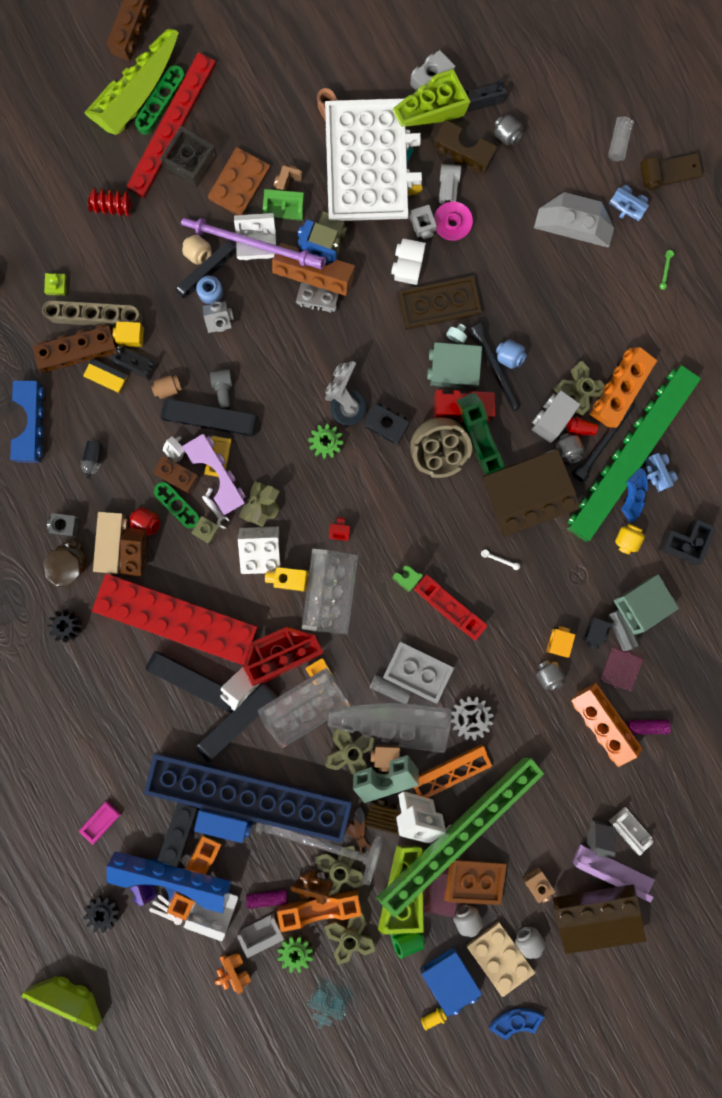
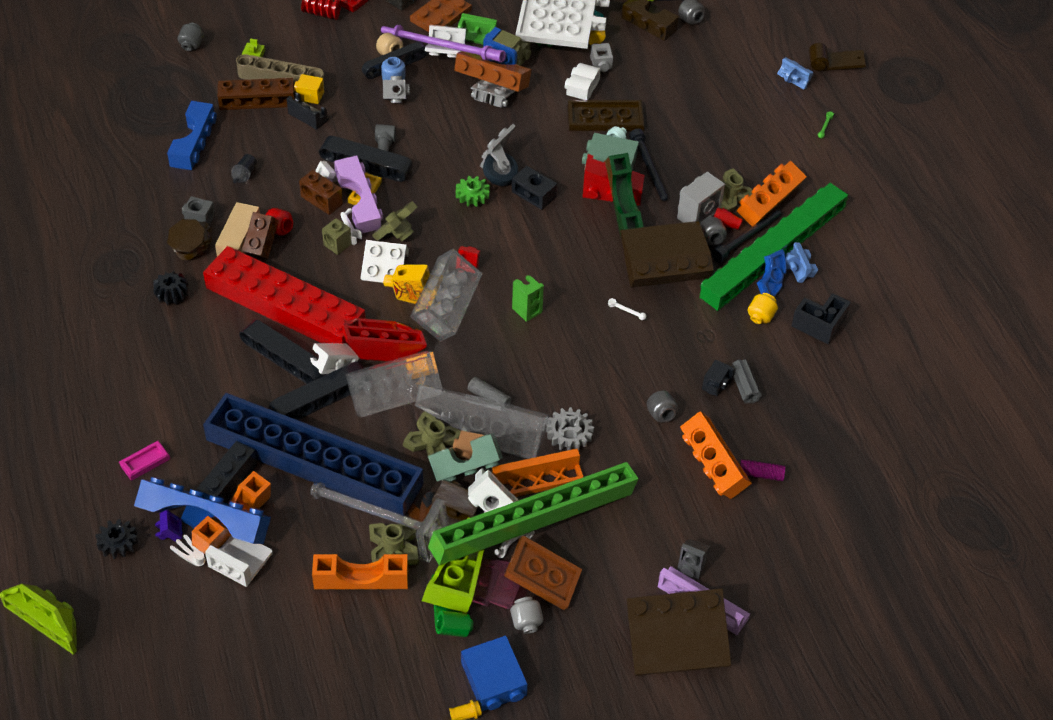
camera: 10 degrees right, 35 degrees down
(105, 376) = (277, 118): yellow tile -> none
(163, 499) = (313, 210): green beam -> none
(166, 386) = (332, 128): medium nougat brick -> none
(223, 825) = (281, 468): blue brick -> none
(237, 981) = (238, 621): orange hips -> none
(260, 935) = (288, 593): light grey panel -> none
(265, 898) = (305, 560): magenta piece -> none
(287, 173) = (487, 10): medium nougat bracket -> none
(287, 953) = (320, 614): bright green gear -> none
(311, 886) = (367, 548): reddish brown hips -> none
(318, 1004) = (339, 677): clear light blue hips -> none
(340, 933) = (386, 610): olive plant -> none
(418, 672) = (522, 383): light grey plate -> none
(440, 447) = (597, 202): dark tan cylinder -> none
(449, 181) = (631, 35): light grey piece -> none
(450, 607) = (564, 336): red slope -> none
(453, 212) = (629, 61): dark pink dish -> none
(500, 959) = (557, 666): tan plate -> none
(511, 354) = (666, 156): medium blue head -> none
(530, 942) = (595, 649): light grey head -> none
(539, 885) = (614, 594): medium nougat brick -> none
(561, 642) = (677, 380): light orange brick -> none
(576, 218) = (745, 78): light grey wedge -> none
(620, 138) = (792, 32): clear axle -> none
(621, 669) = (739, 419): clear pink piece -> none
(631, 831) = (728, 563): white hinge -> none
(646, 604) = (771, 358): sand green brick -> none

